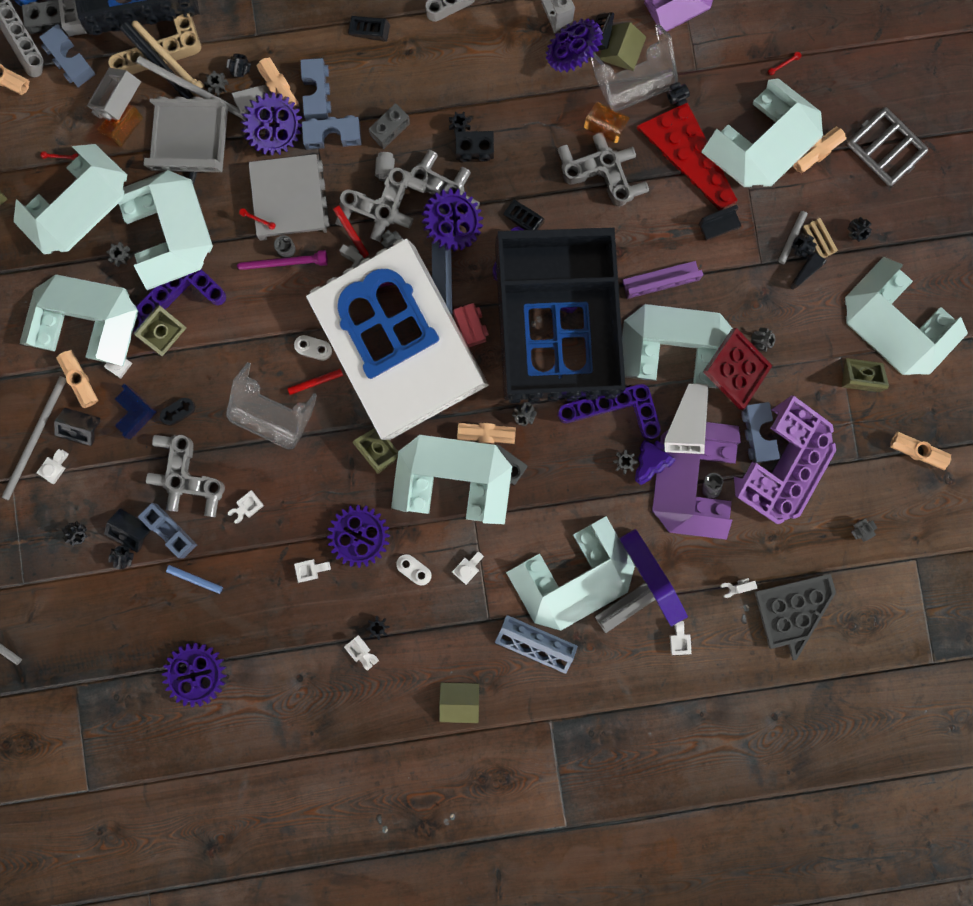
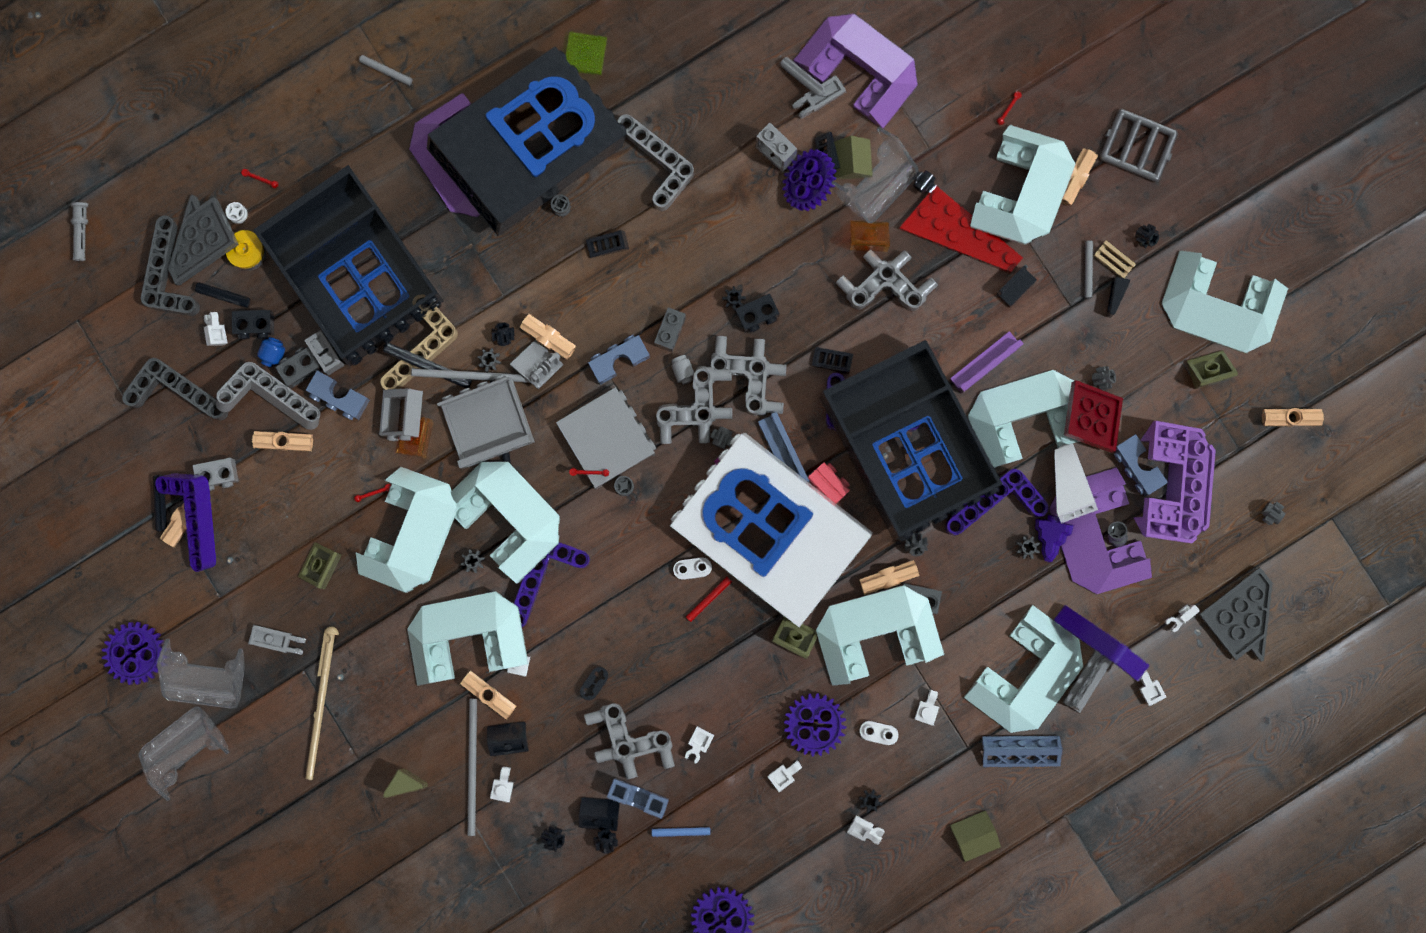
camera: 20 degrees left, 0 degrees up
(138, 412) = (558, 700): clear blue panel -> none
(160, 330) = (545, 615): olive slope -> none
(165, 55) = (433, 356): tan piece -> none
(264, 416) = (680, 651): clear windscreen -> none
(288, 123) = (561, 377): dark purple gear -> none
(315, 73) = (578, 310): sand blue arch -> none
(318, 258) = (660, 482): magenta piece -> none
(351, 232) = (680, 445): red bar -> none
(351, 254) = (690, 465): light grey bracket -> none
(435, 219) = (756, 401): dark purple gear -> none
(804, 245) = (1103, 273): black gear -> none

